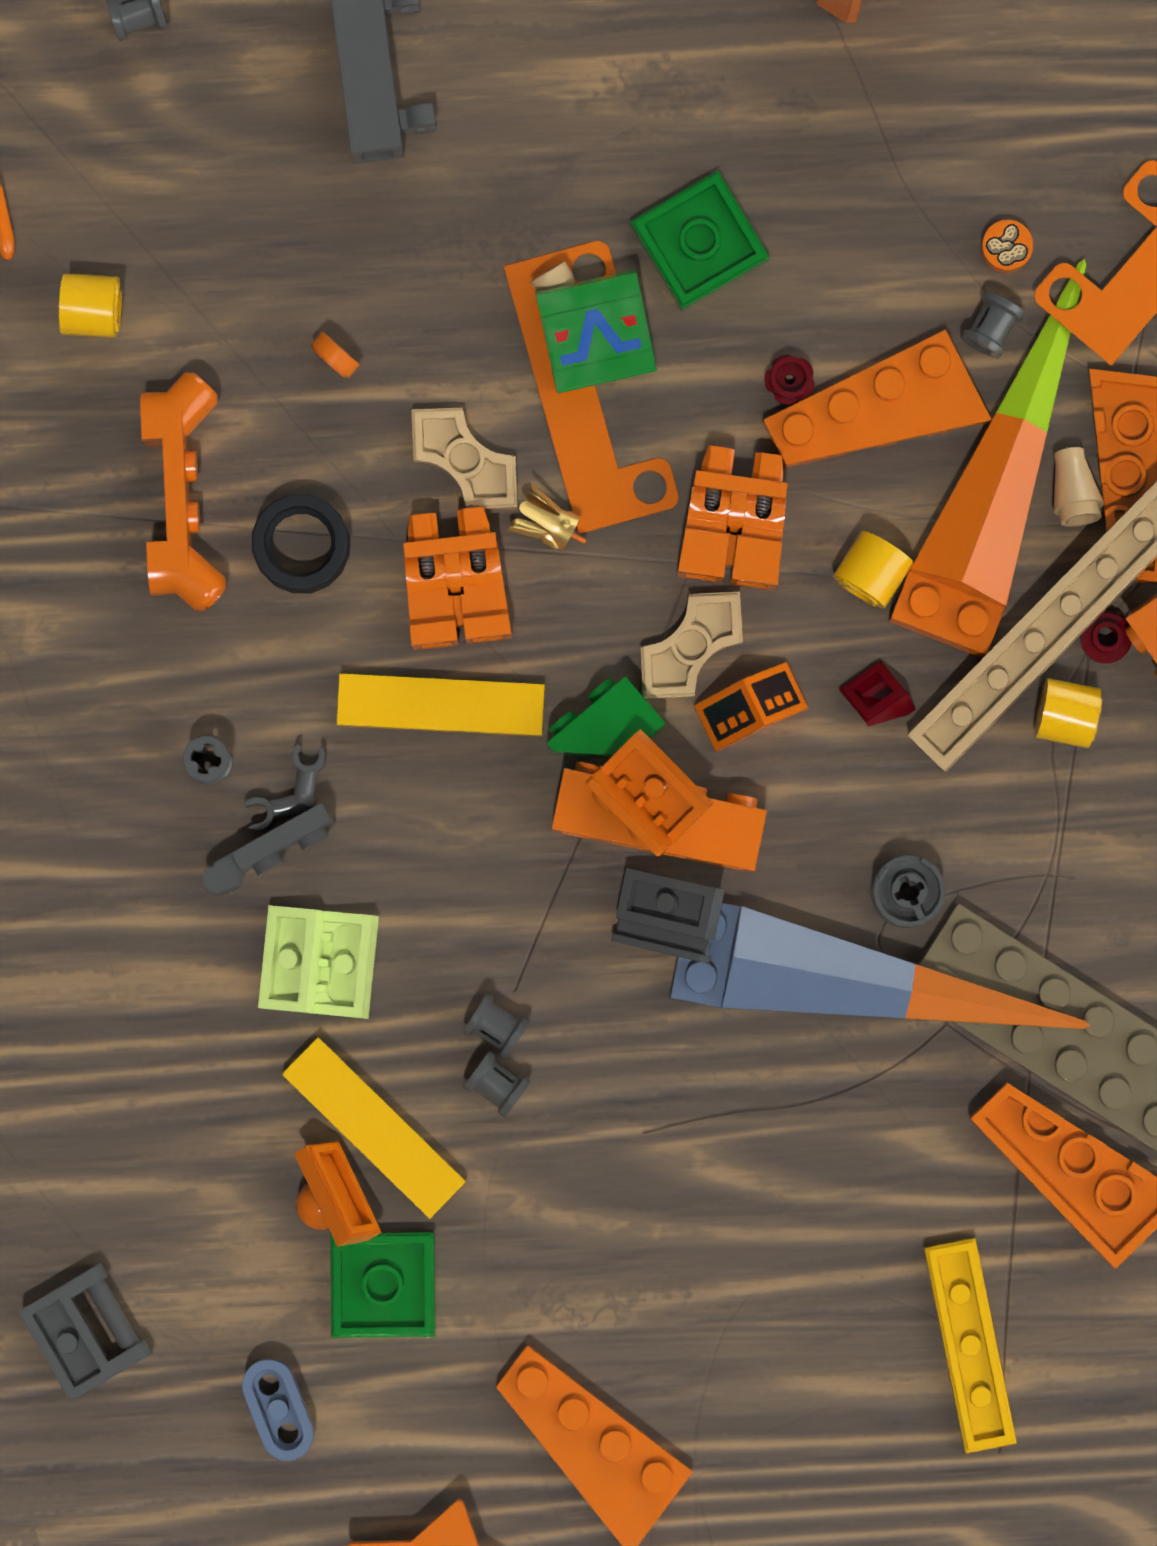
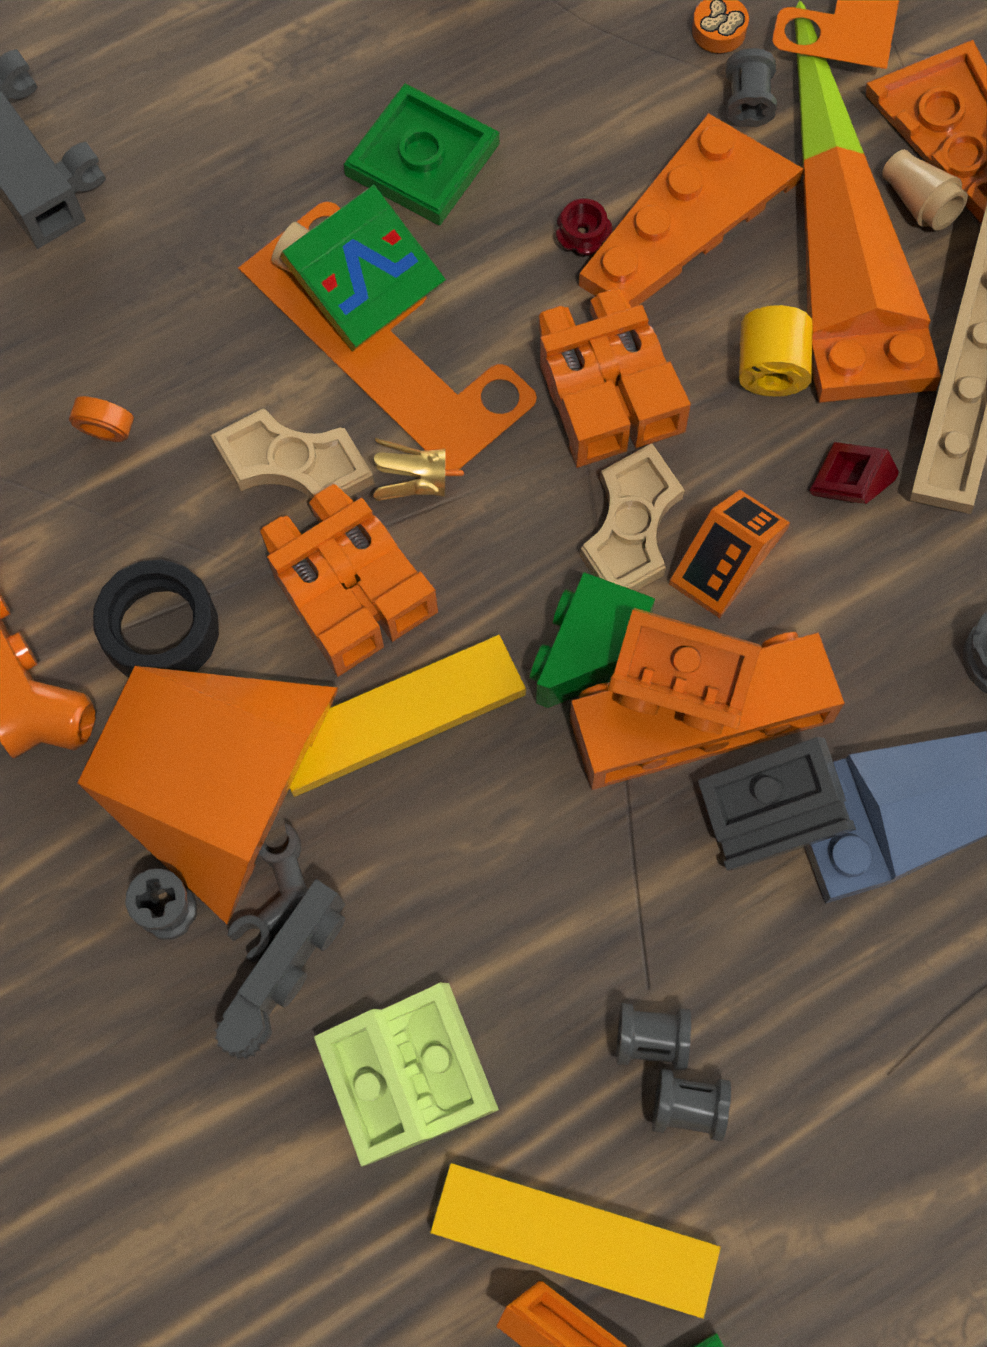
camera: 20 degrees left, 15 degrees down
(283, 678) = (203, 770): none -> orange wedge

